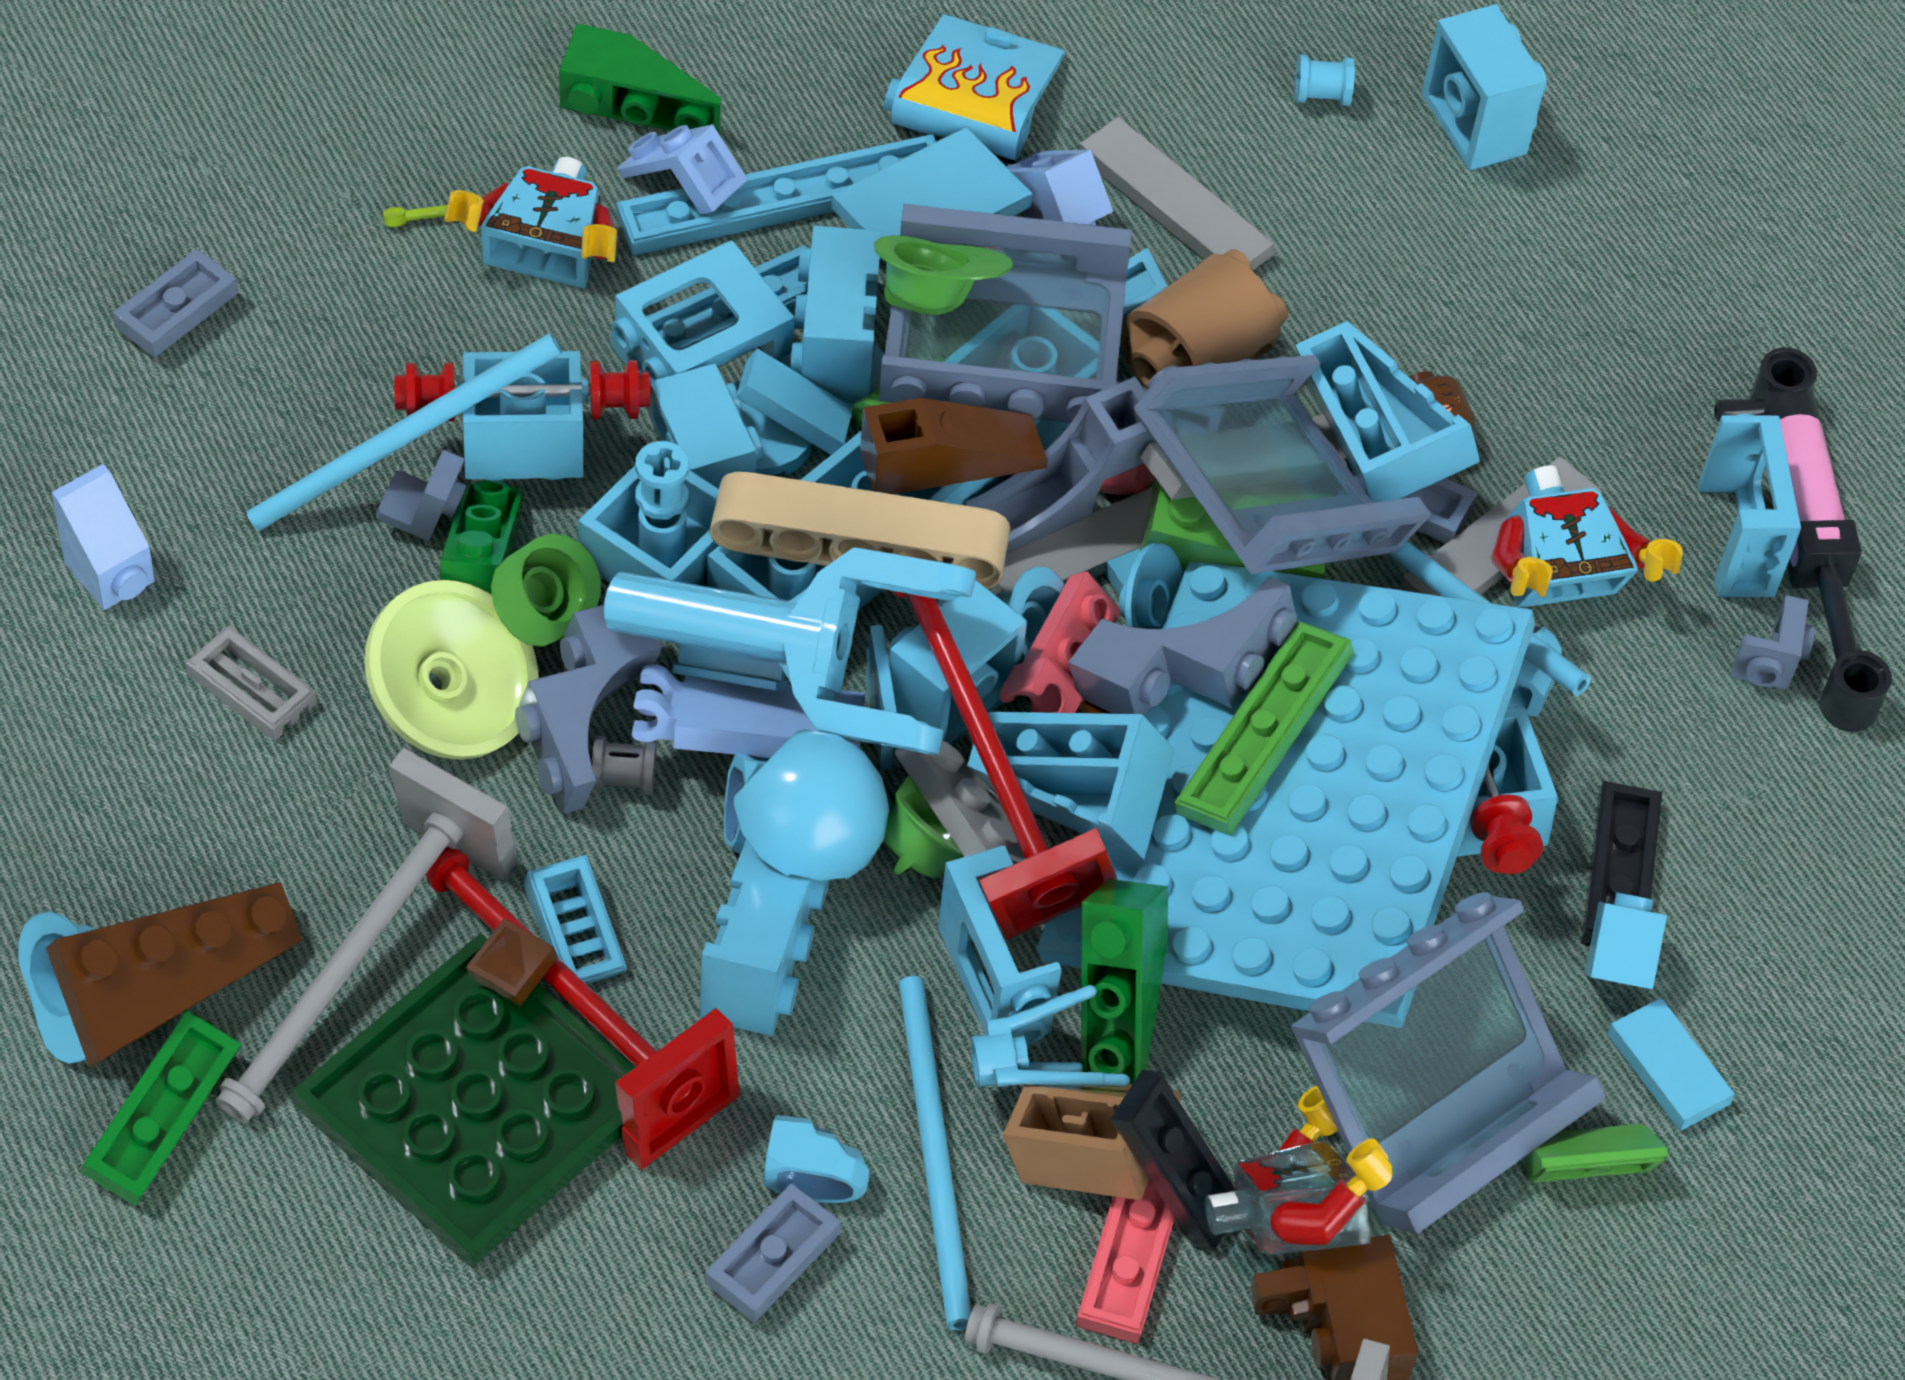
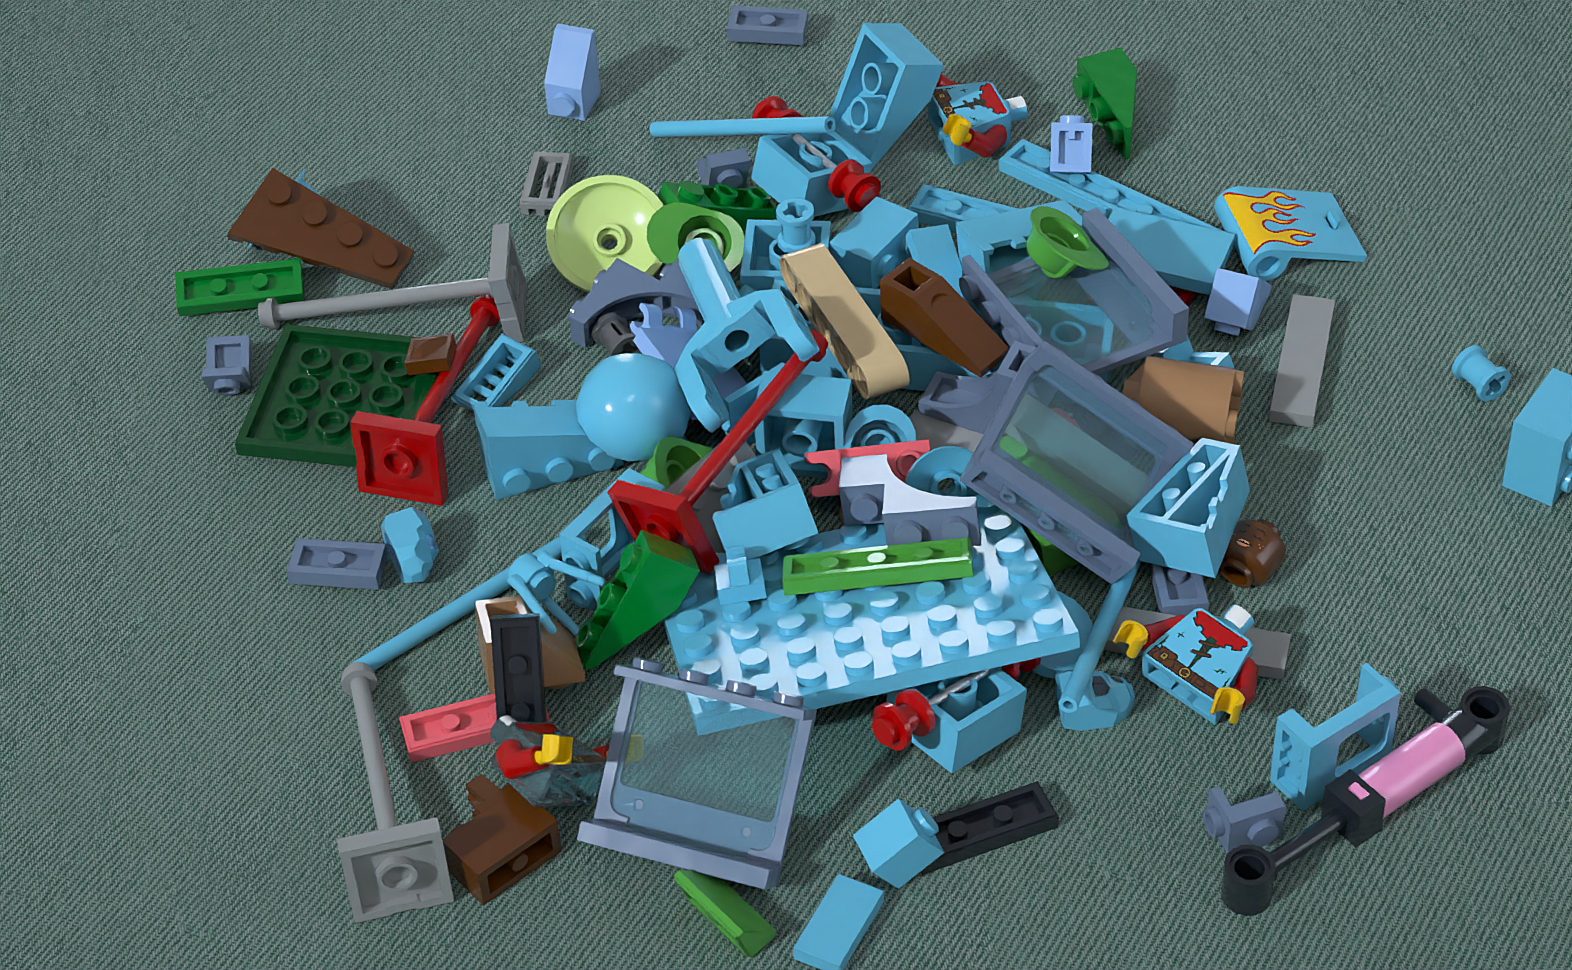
camera: 65 degrees right, 10 degrees down
(307, 1193) = (228, 364): none -> sand blue bracket
(463, 267) = (883, 88): none -> medium azure slope
(759, 312) = (992, 195): medium azure window -> none
(1177, 861) = (739, 578): none -> medium azure tile

